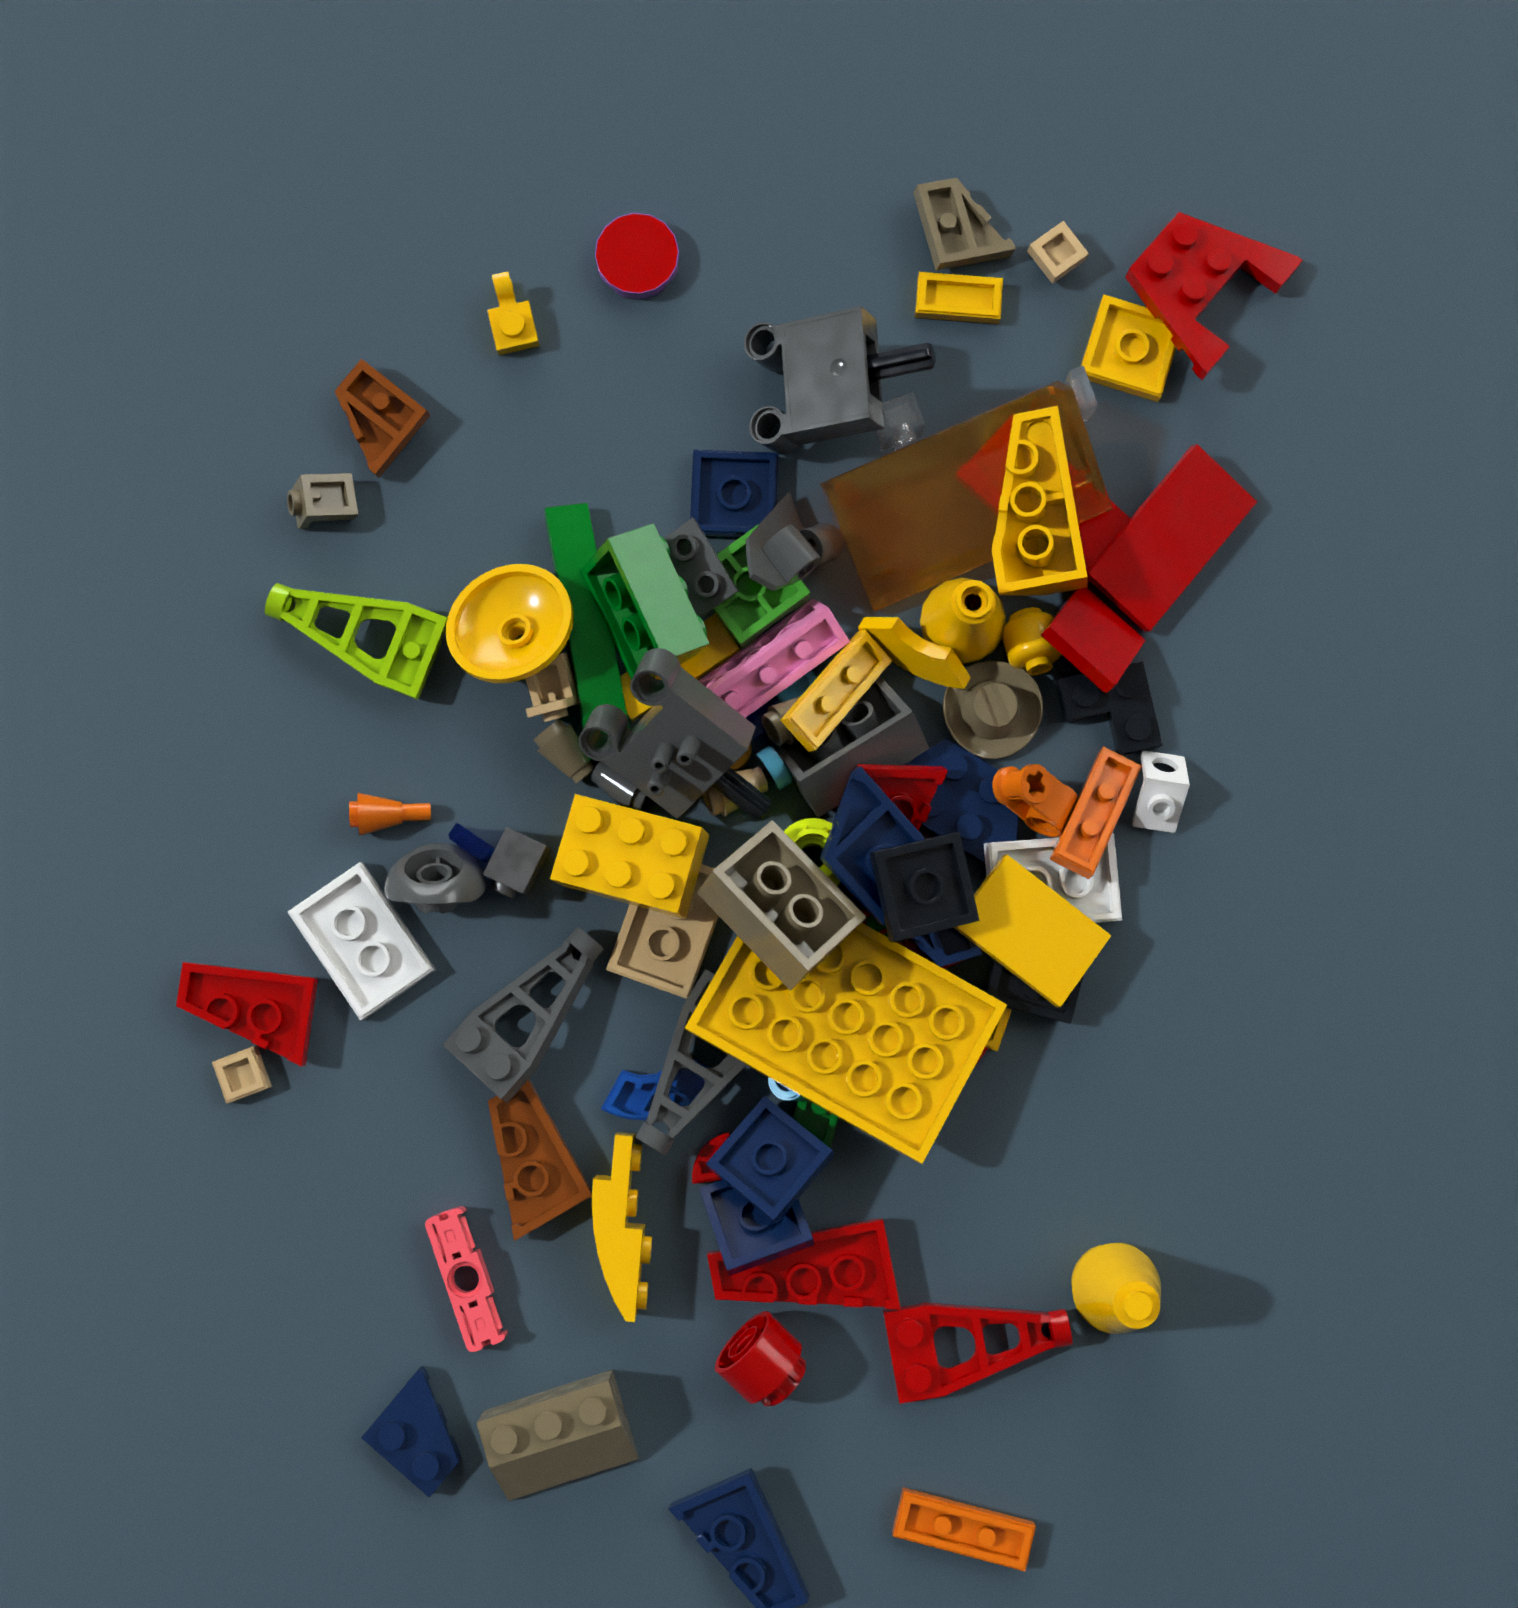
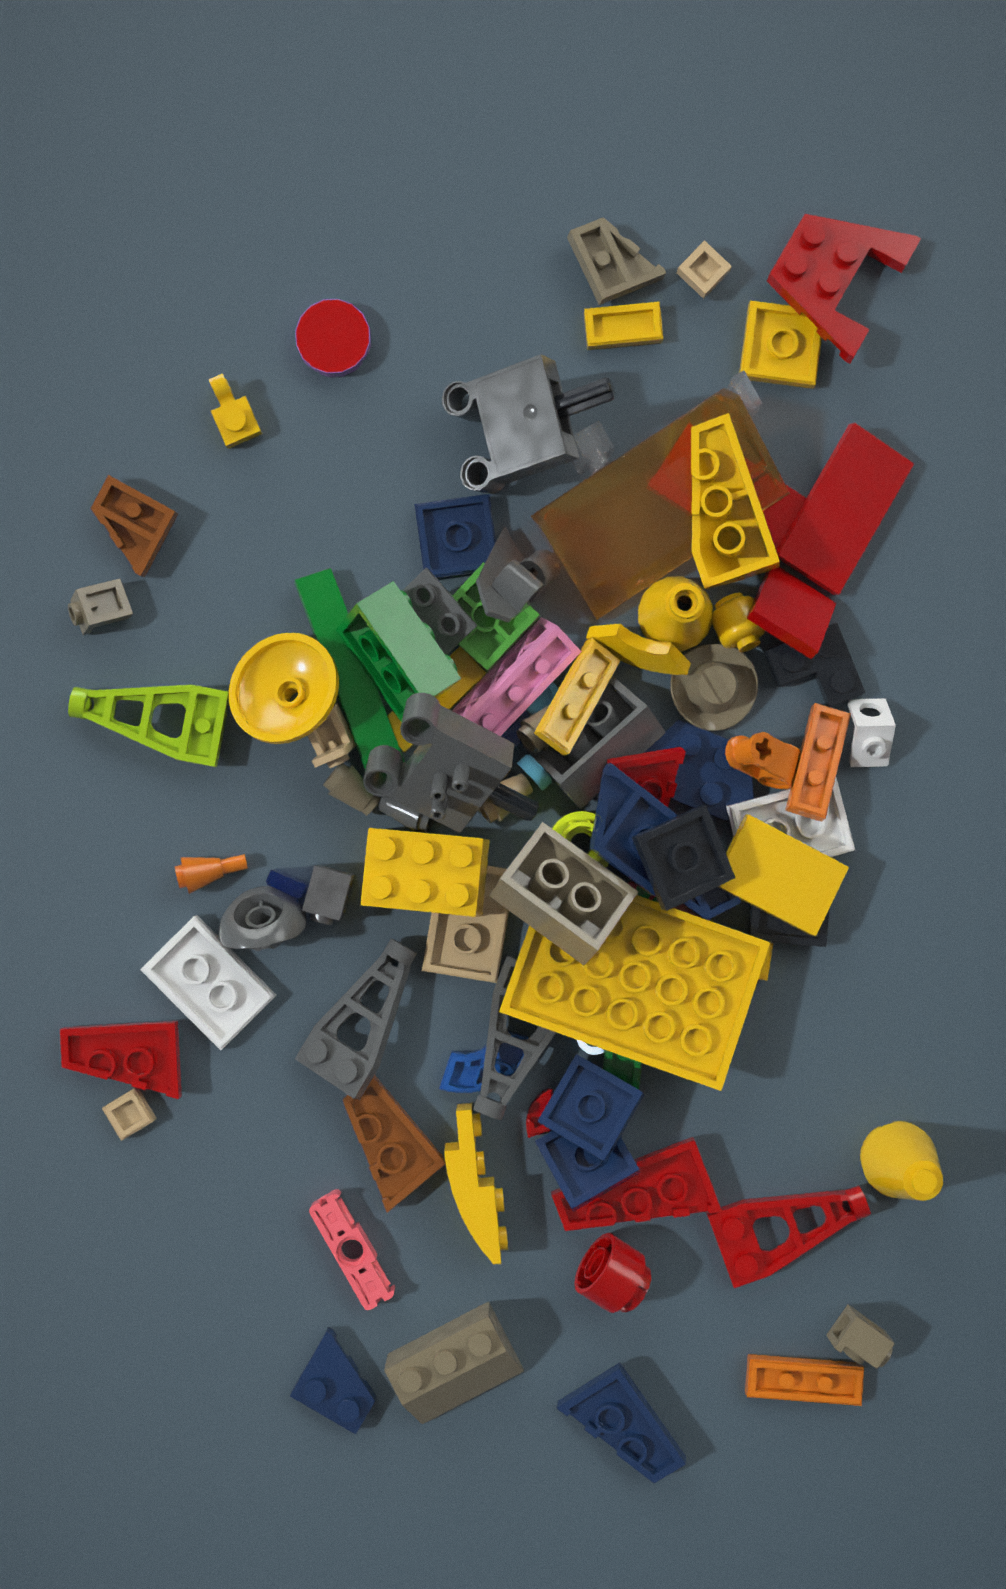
camera: 10 degrees left, 5 degrees up
(1038, 1490) = (860, 1338): none -> dark tan brick

